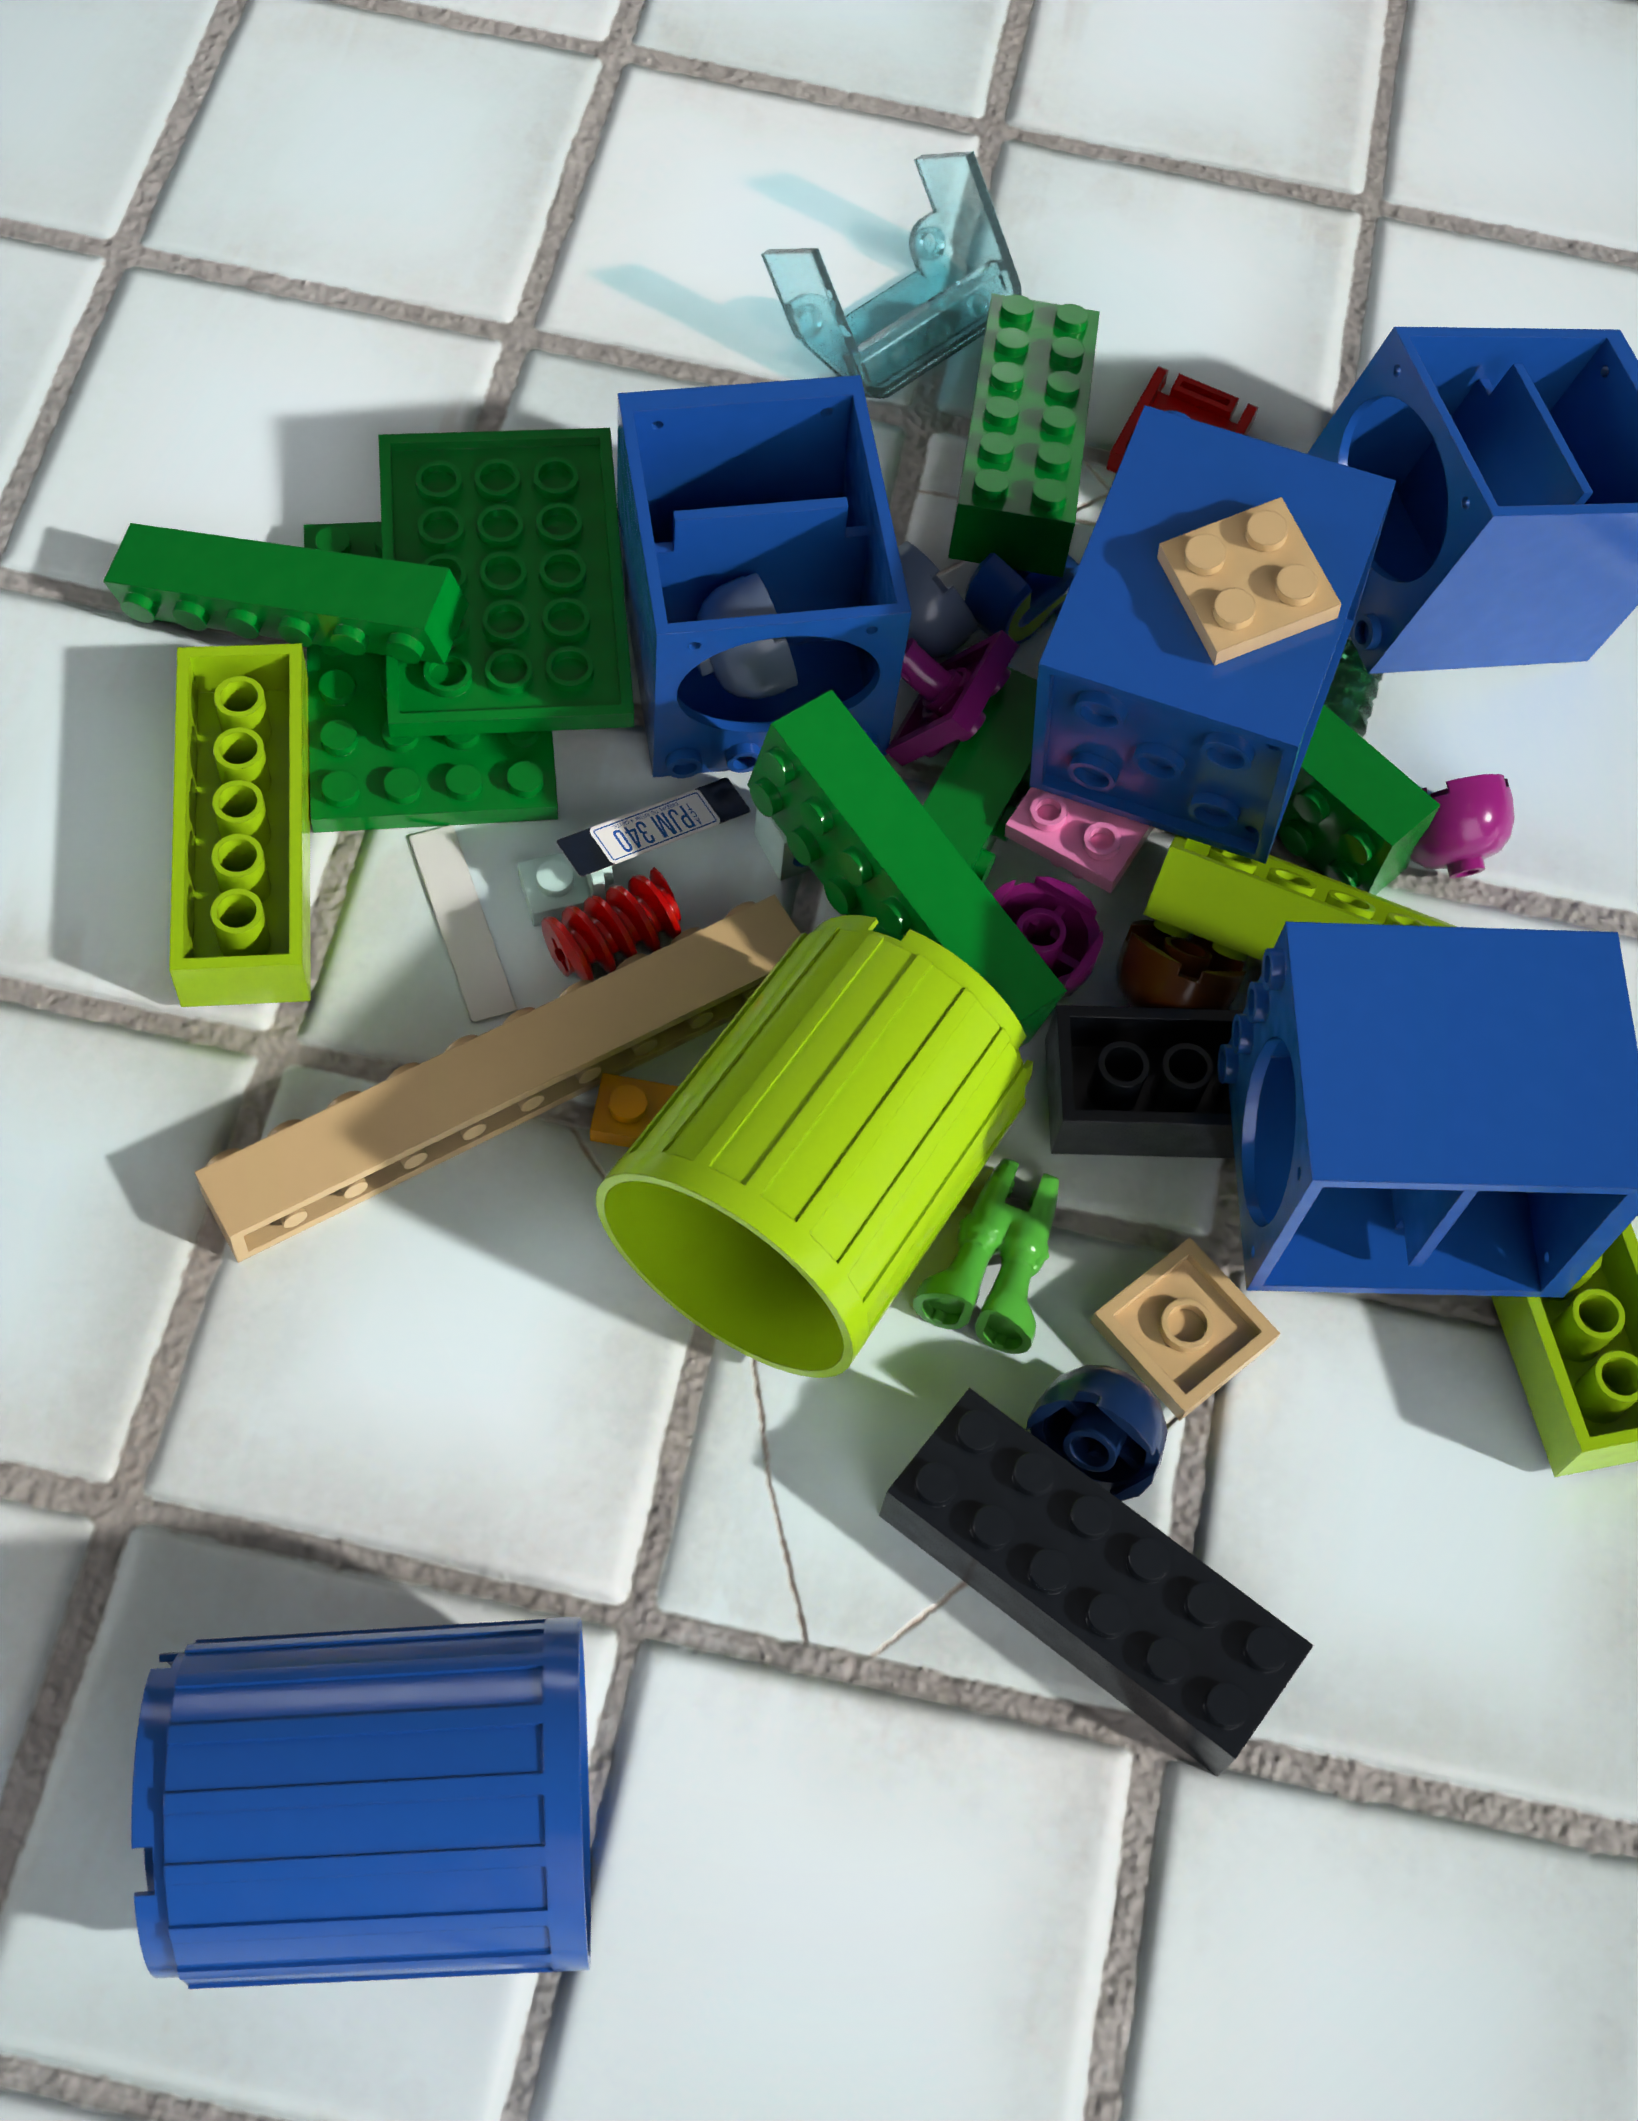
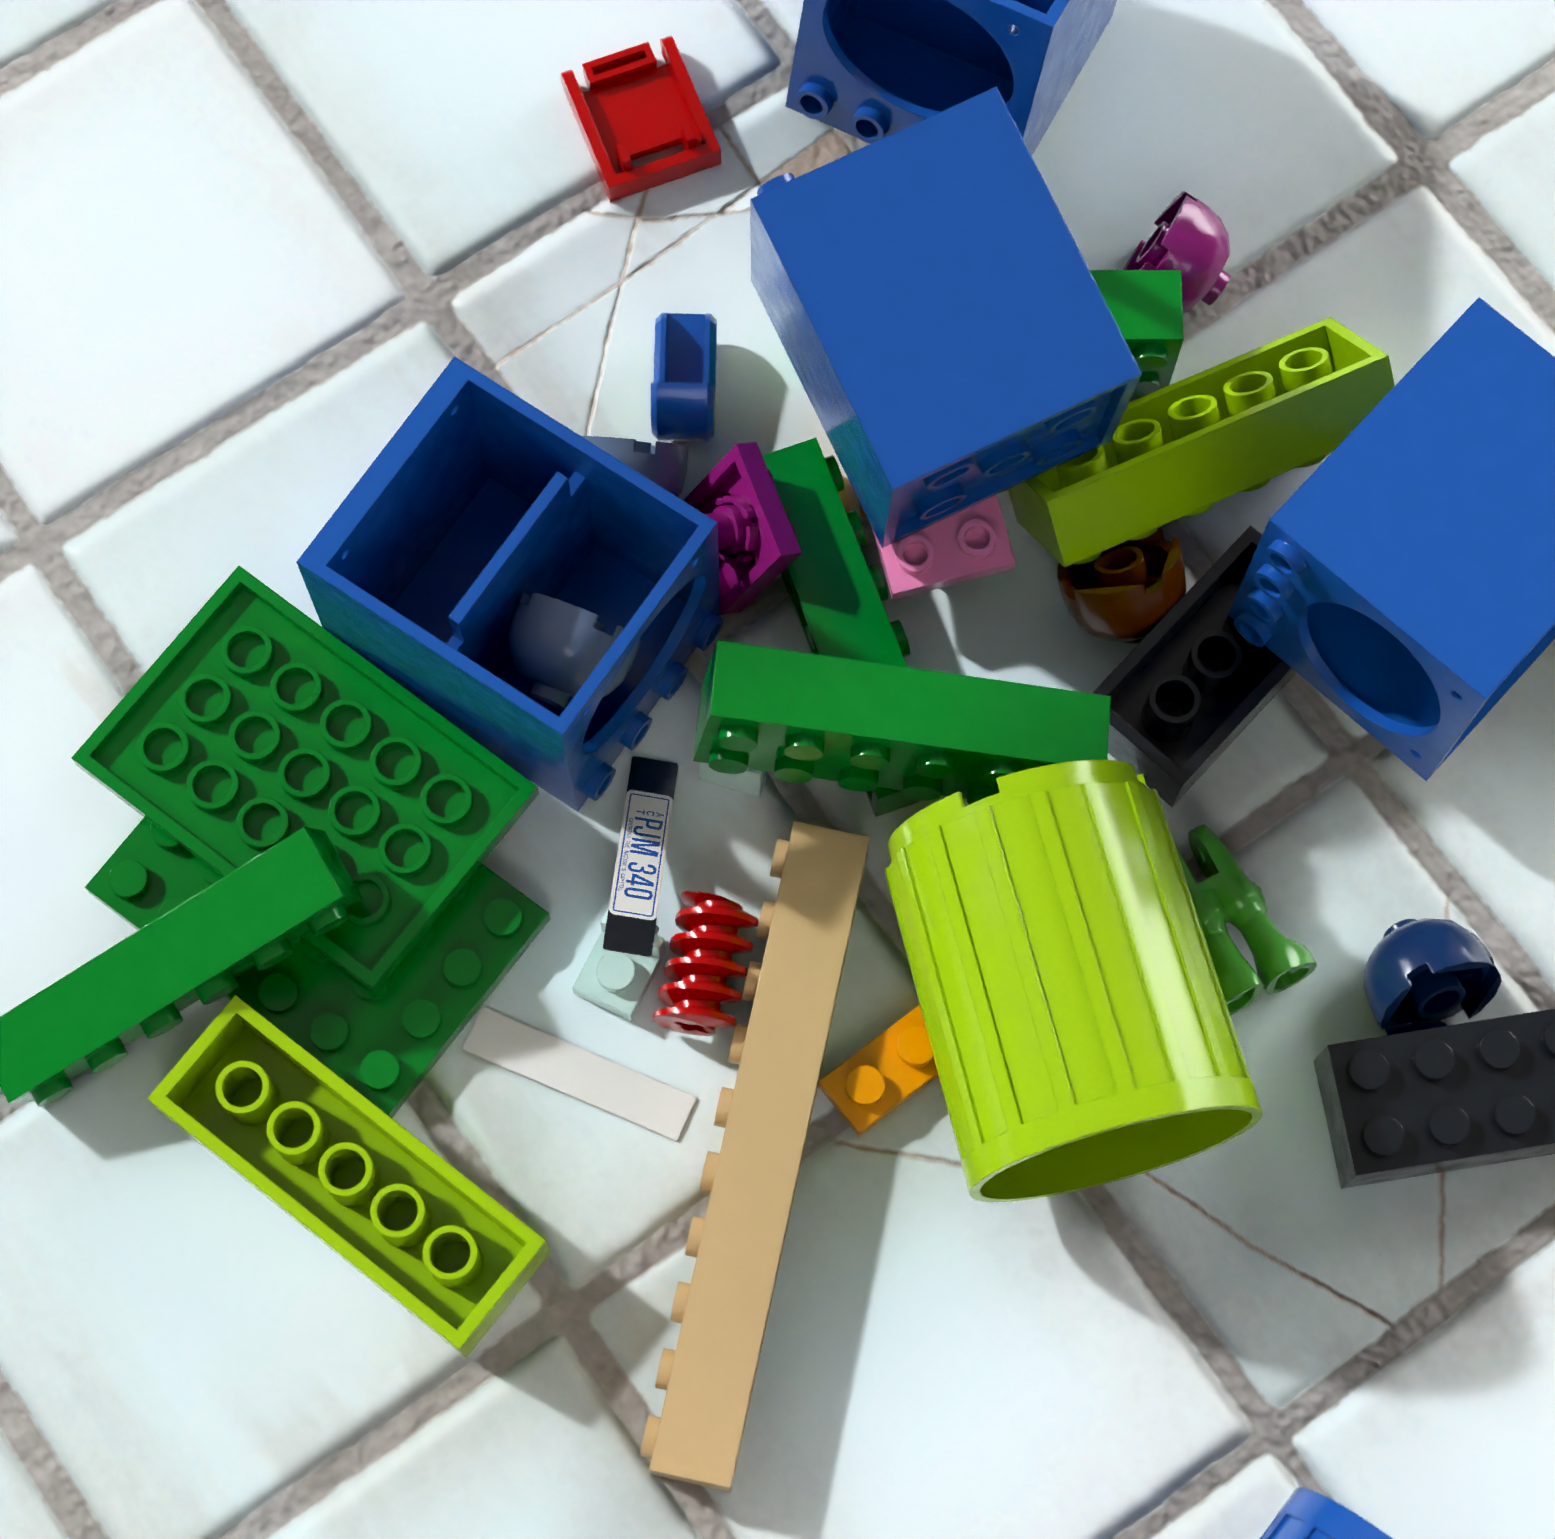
camera: 40 degrees left, 10 degrees up
(923, 316) = (332, 199): clear light blue windscreen -> none
(1026, 435) = (549, 245): green brick -> none
(1057, 924) = (1012, 643): magenta cylinder -> none
(1184, 1328) = (1394, 842): tan plate -> none
(1248, 581) = (979, 276): tan plate -> none

